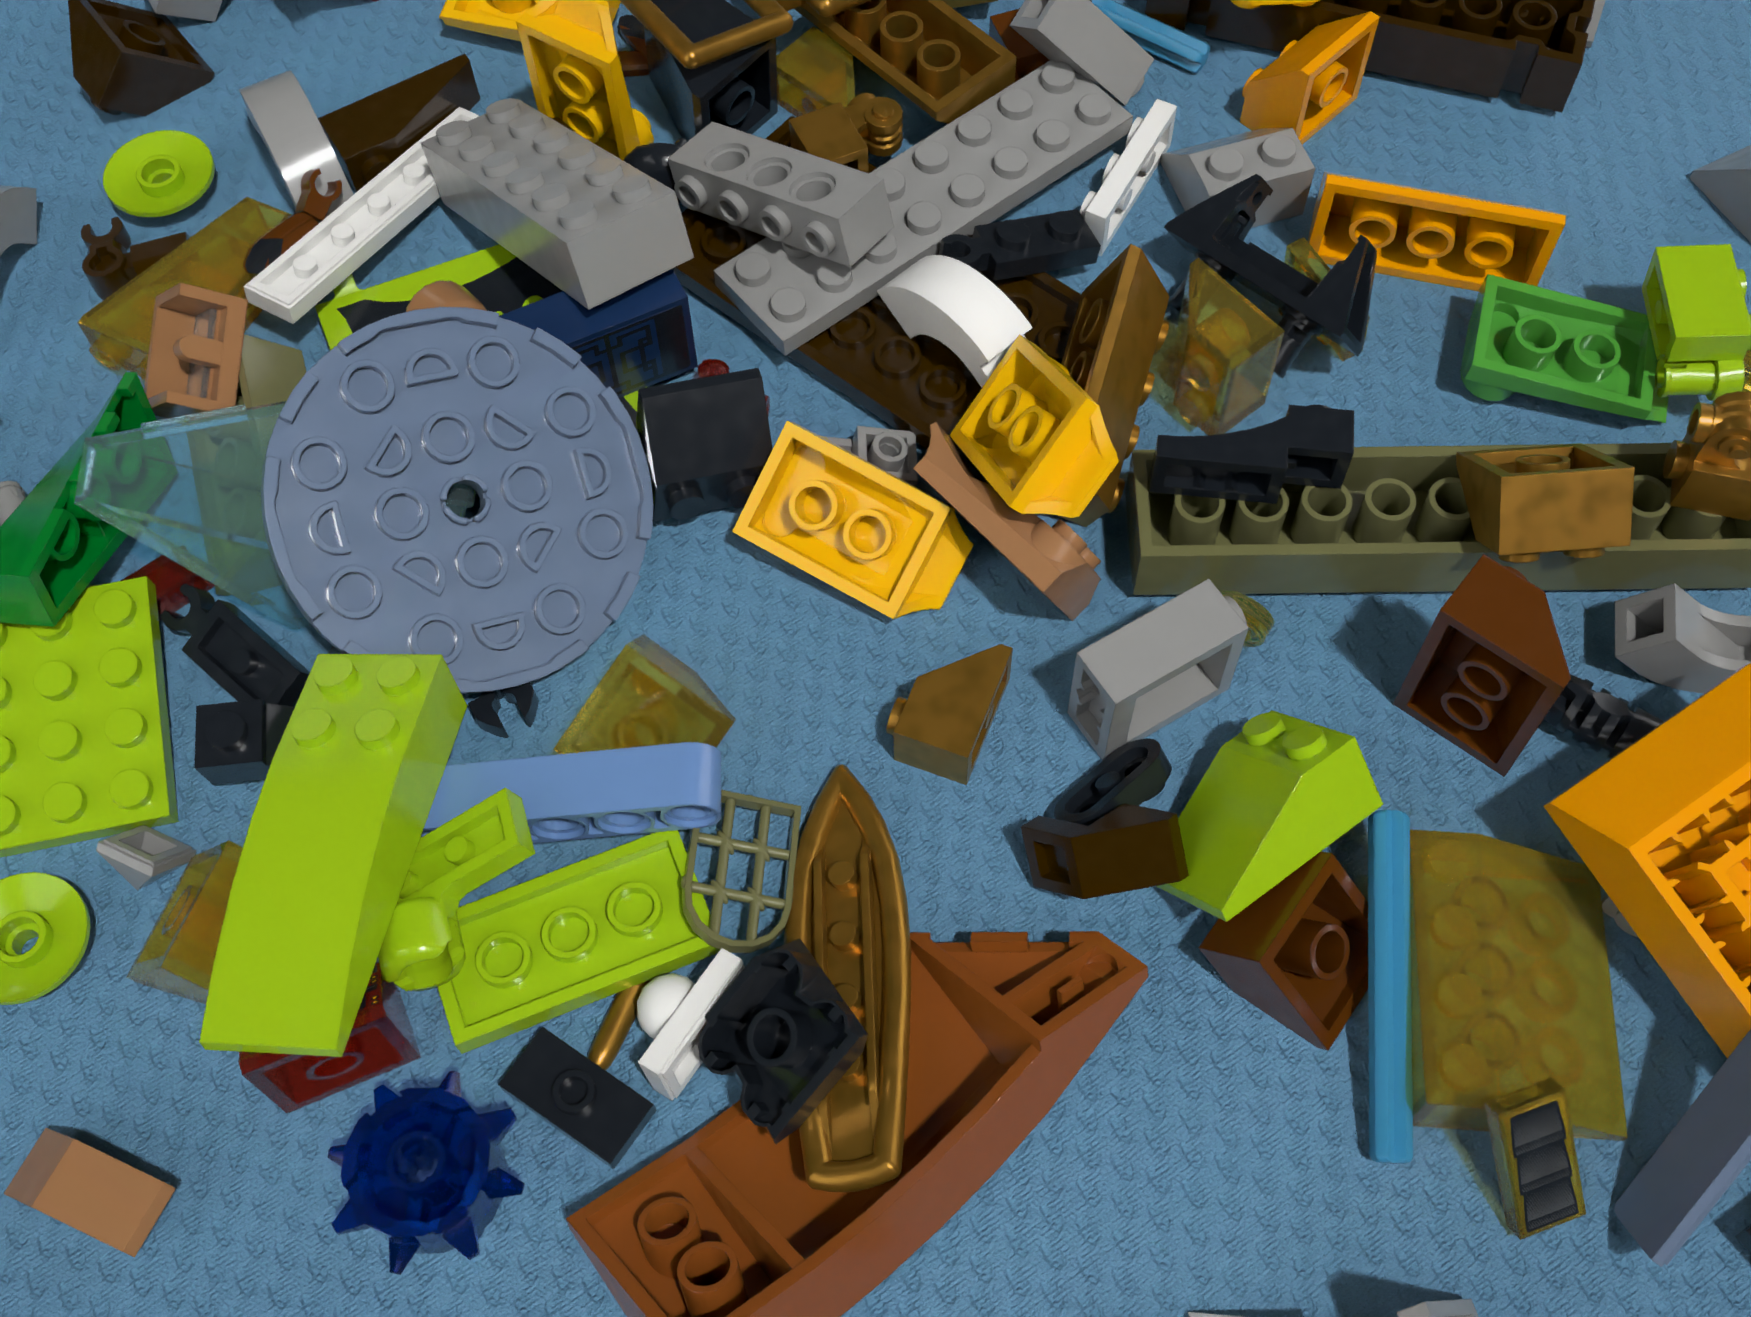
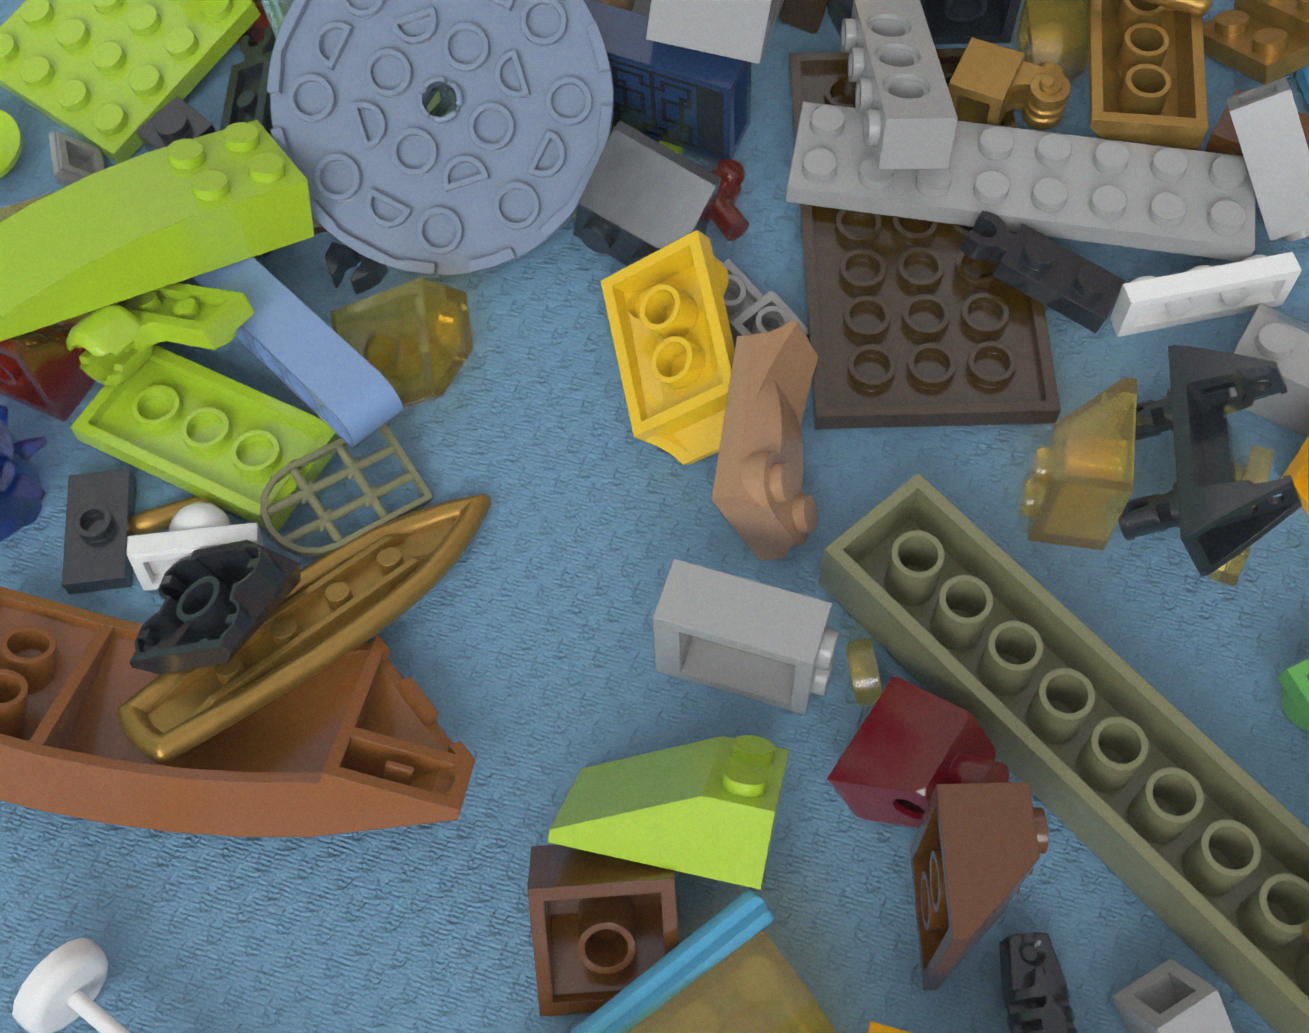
camera: 50 degrees right, 0 degrees up
(950, 714) = (591, 533): pearl gold slope -> none
(957, 308) = (916, 294): white arch -> none
(1037, 435) = (836, 383): yellow slope -> none
(1111, 355) = (957, 412): pearl gold slope -> none
(1113, 855) = (553, 723): dark brown slope -> none
(1126, 776) = (634, 691): black plate -> none
(1252, 464) = (981, 562): black slope -> none
(1352, 633) = (907, 750): none -> dark red torso
(1547, 500) = (1178, 811): pearl gold slope -> none

